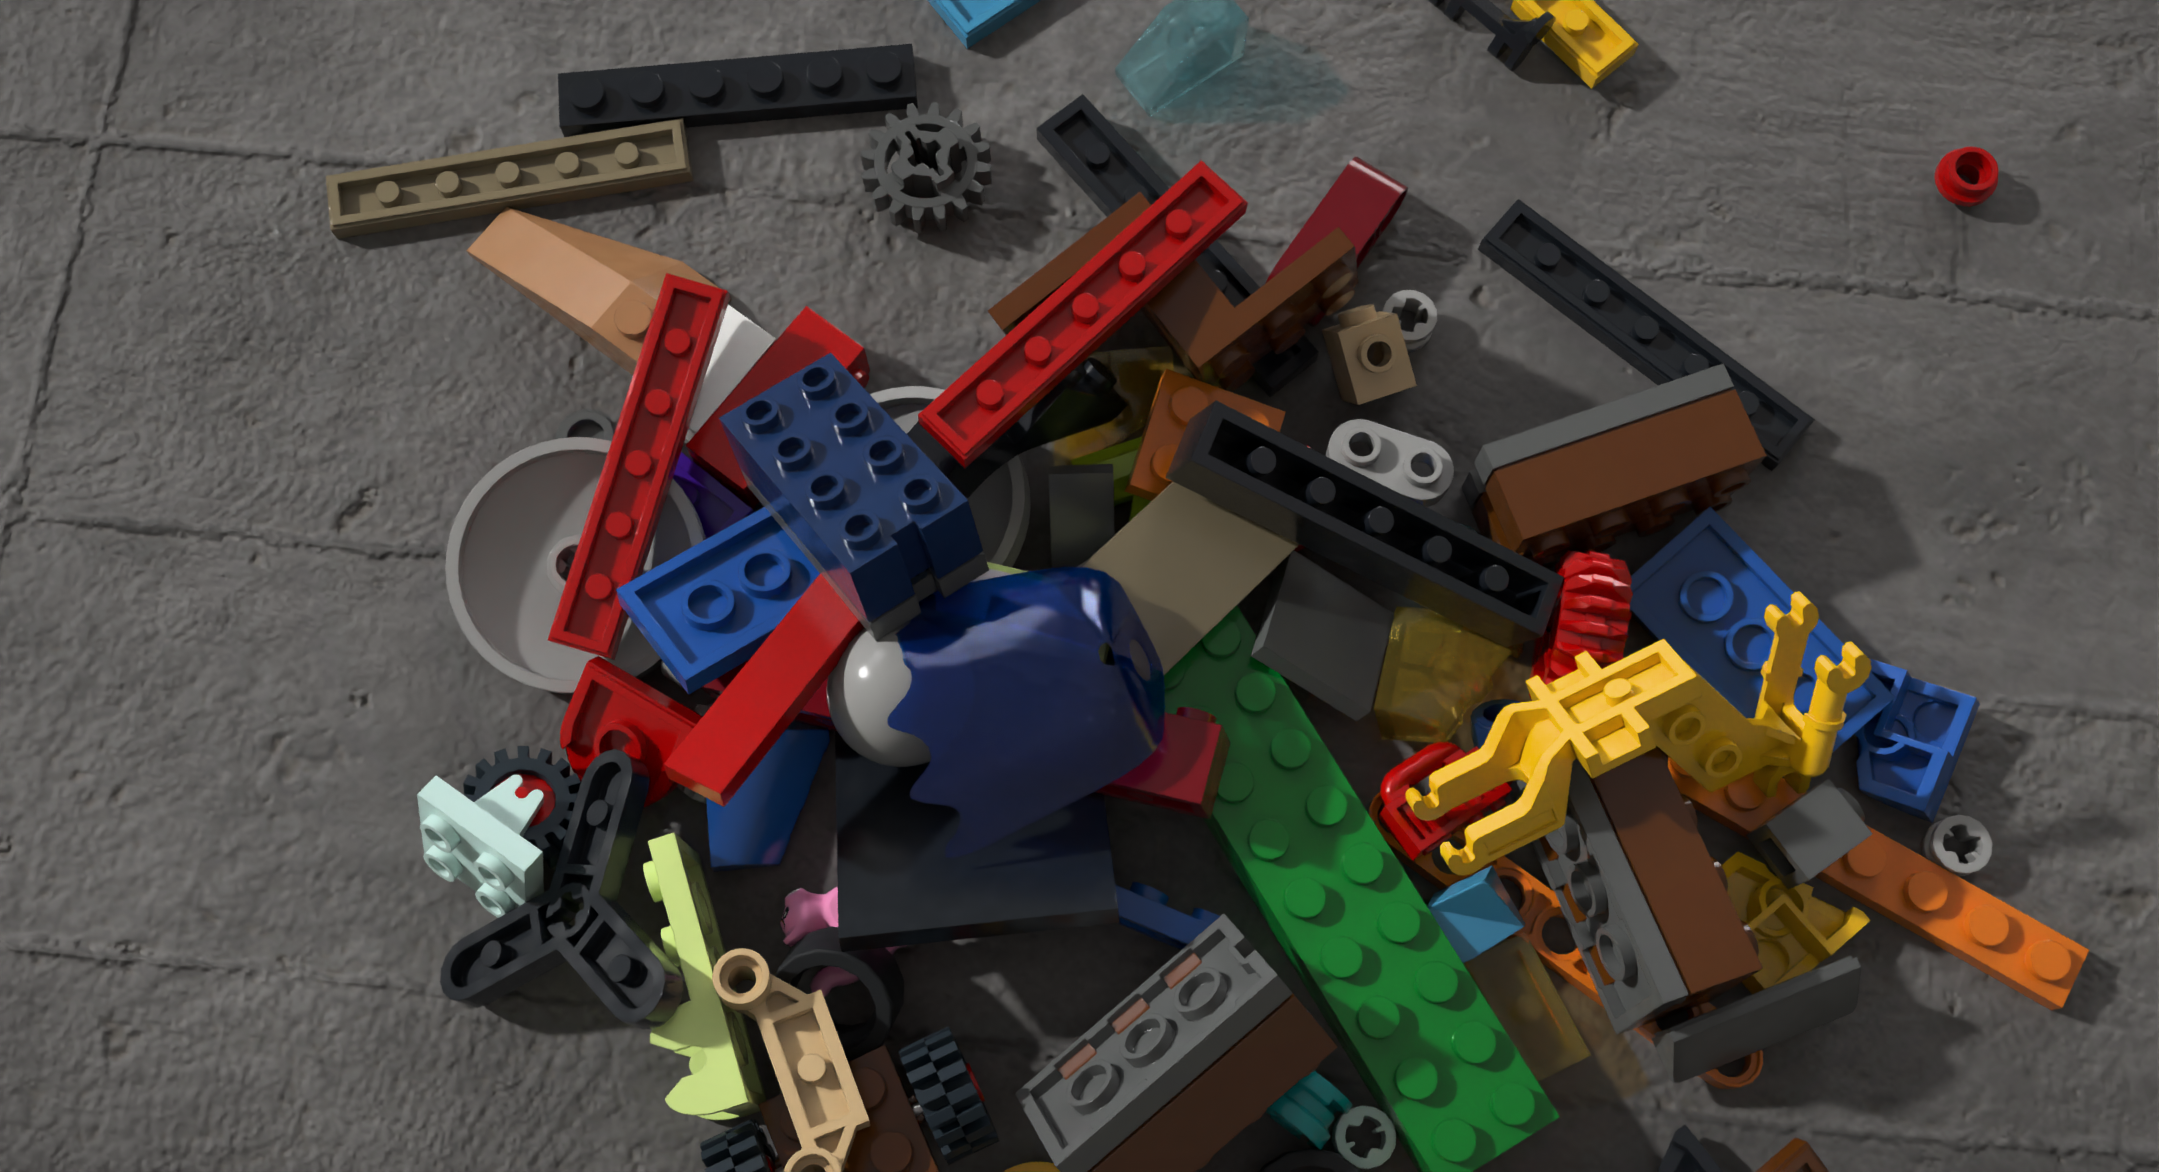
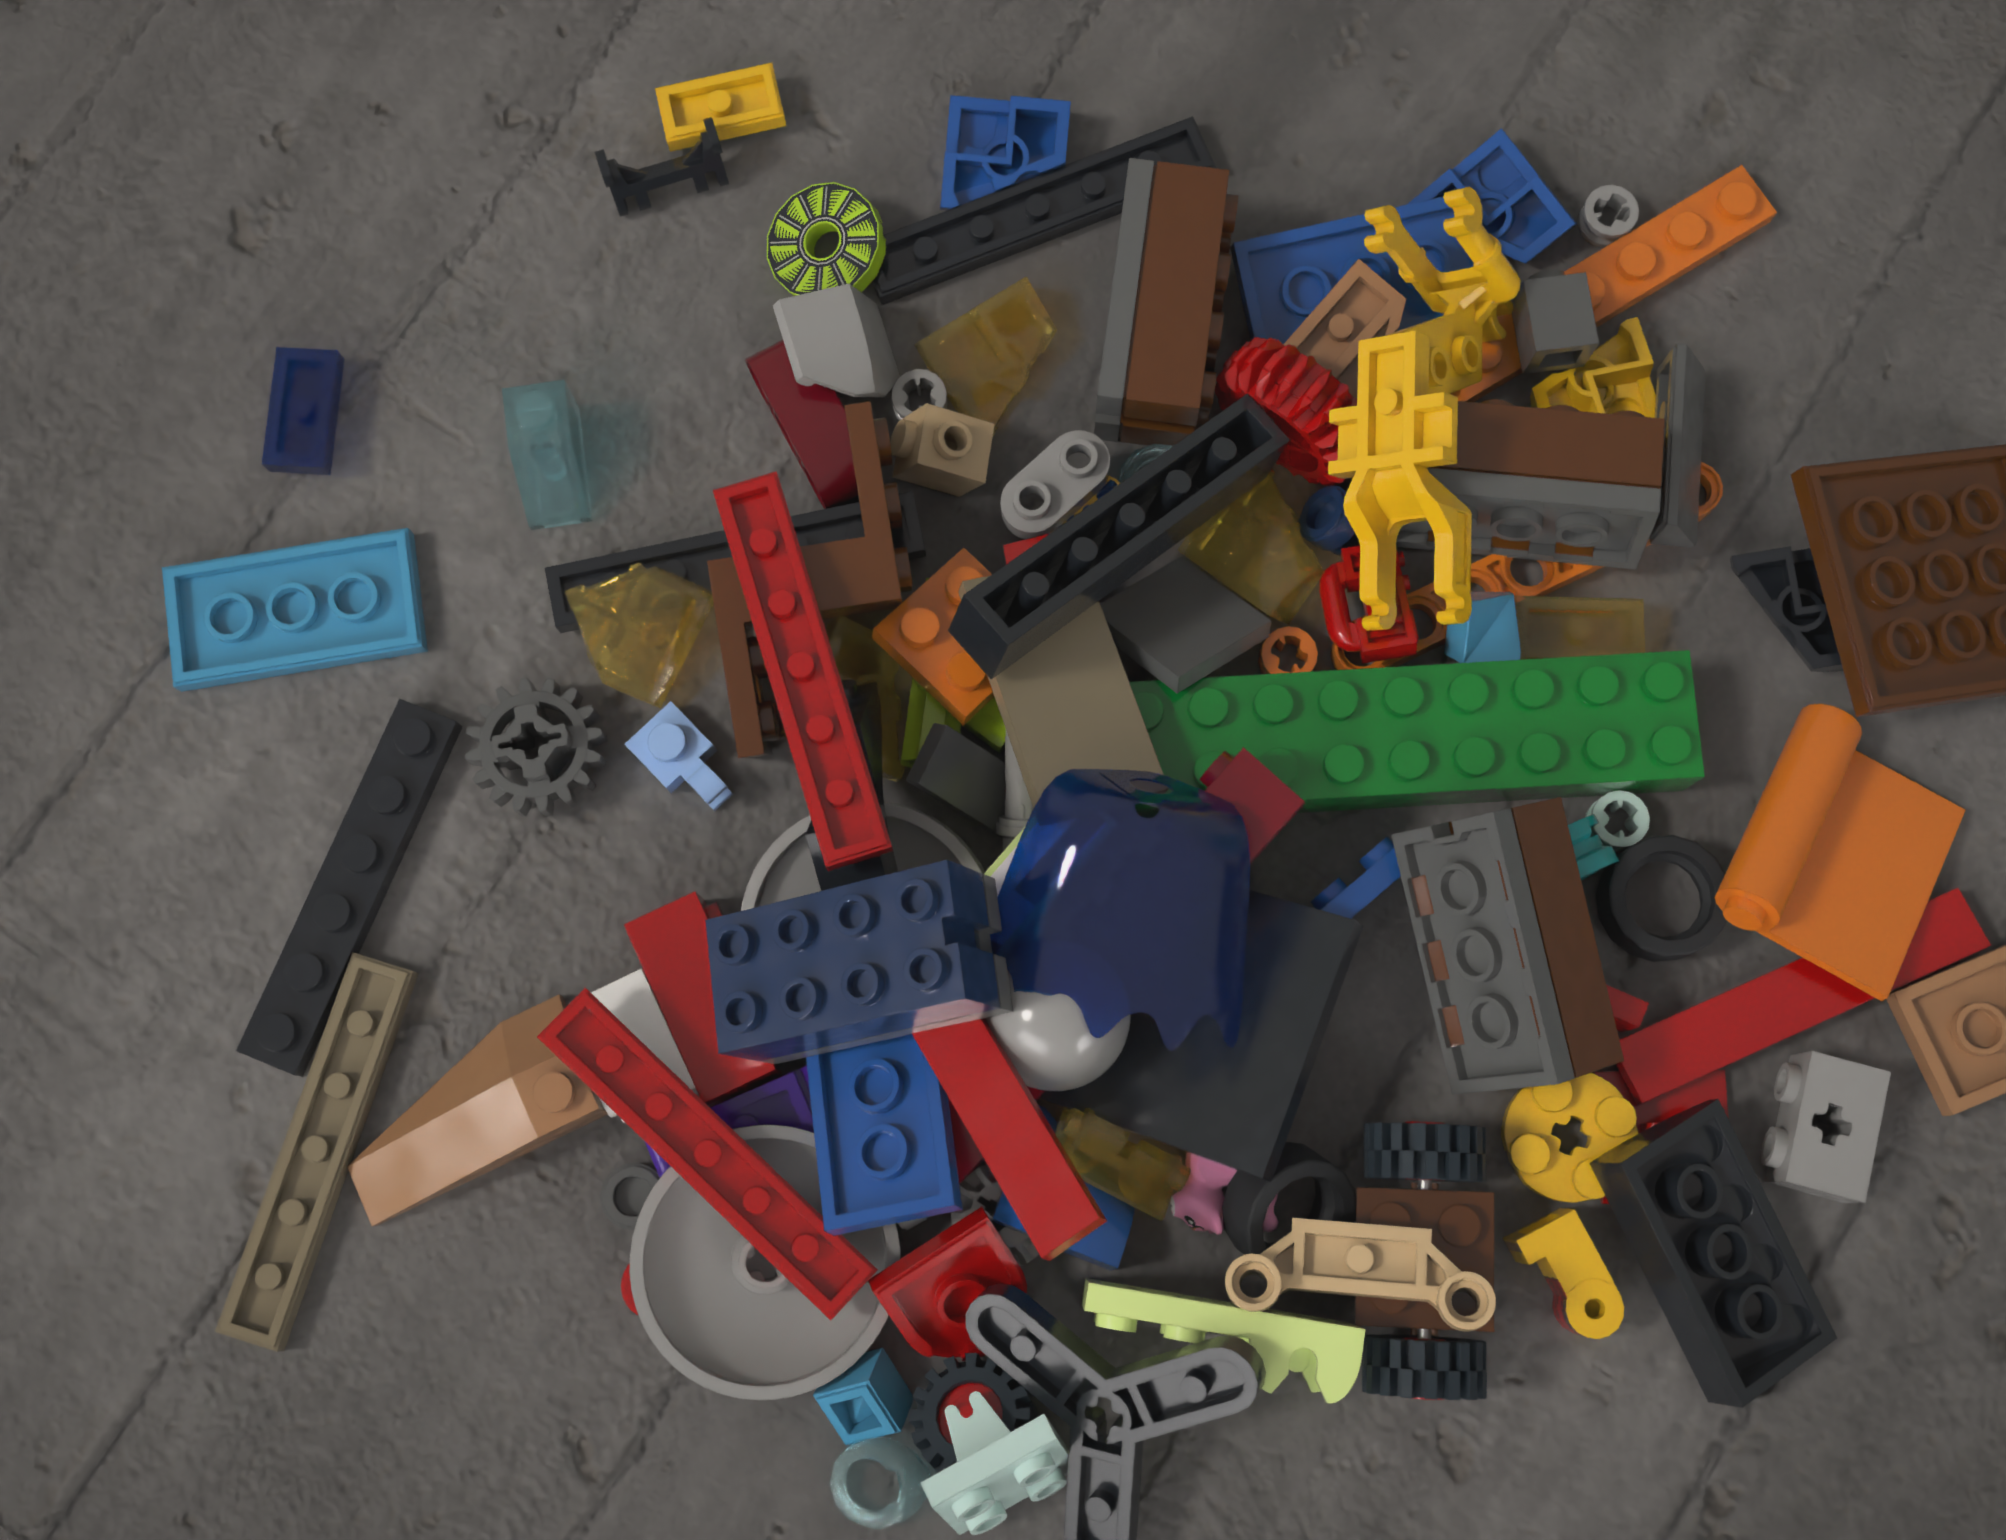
camera: 60 degrees left, 5 degrees up
(461, 760) = (893, 1457): none -> clear light blue piece
(503, 712) = (866, 1399): none -> dark azure slope
(805, 822) = (1128, 1171): none -> clear yellow hinge
(978, 282) = (677, 753): none -> light blue plate
(1065, 188) = (640, 628): none -> clear yellow slope
(1366, 737) = (1306, 650): none -> orange bush
(1415, 221) = (837, 341): none -> light grey slope
(1485, 356) = (990, 351): none -> clear yellow slope
(1495, 144) = (808, 217): none -> tile
(1683, 270) = (1000, 144): none -> blue slope
(1709, 641) = (1354, 310): none -> medium nougat wing

